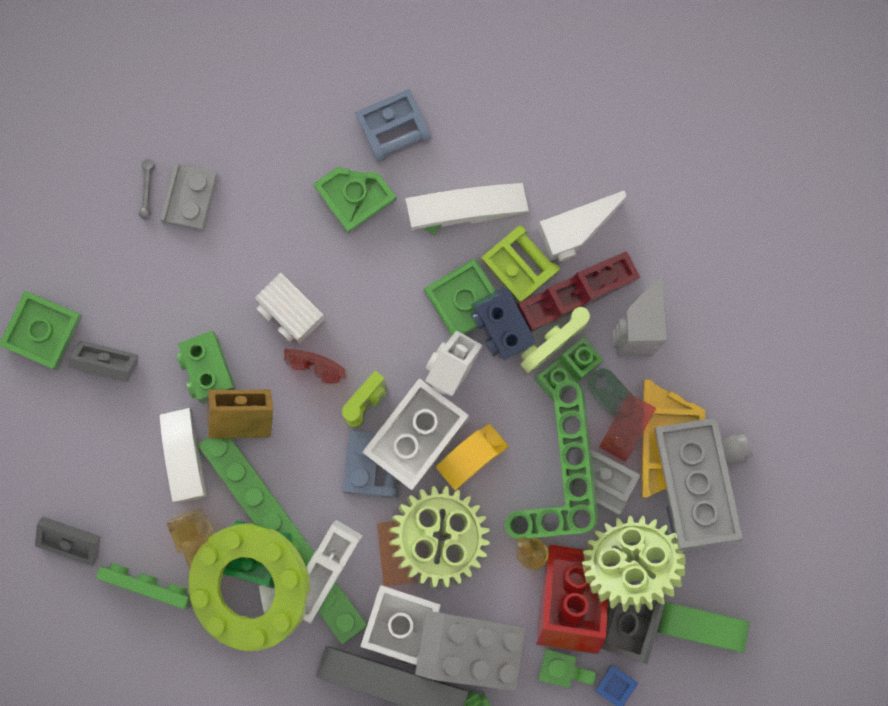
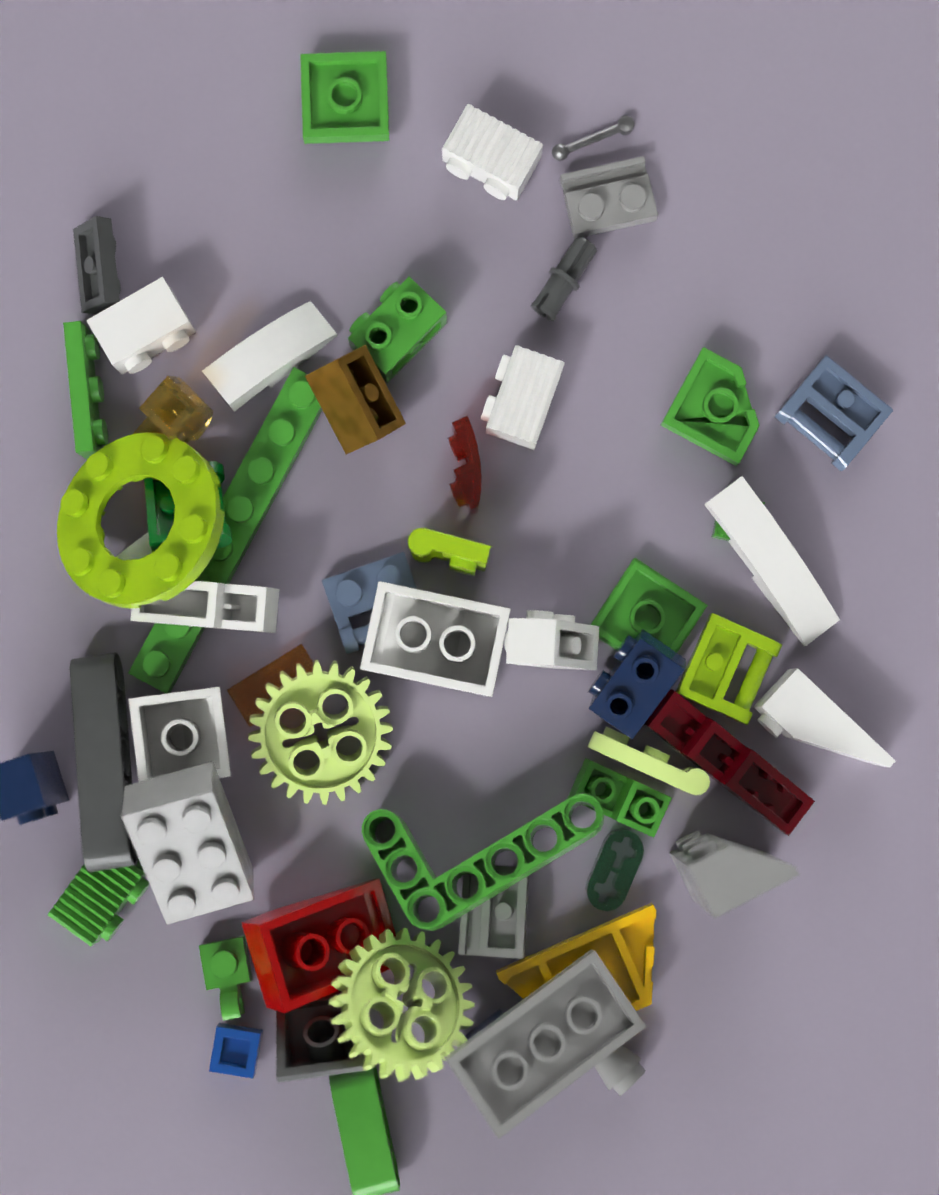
camera: 60 degrees right, 5 degrees up
(103, 361) = (343, 195): dark grey plate -> none
(123, 529) = (142, 327): none -> white brick
(124, 256) = (491, 153): none -> white brick
(226, 248) = (564, 278): none -> dark grey axle
(471, 456) = (444, 725): yellow brick -> none
(532, 553) = (355, 862): clear yellow plate -> none
(627, 427) = (578, 912): clear red slope -> none

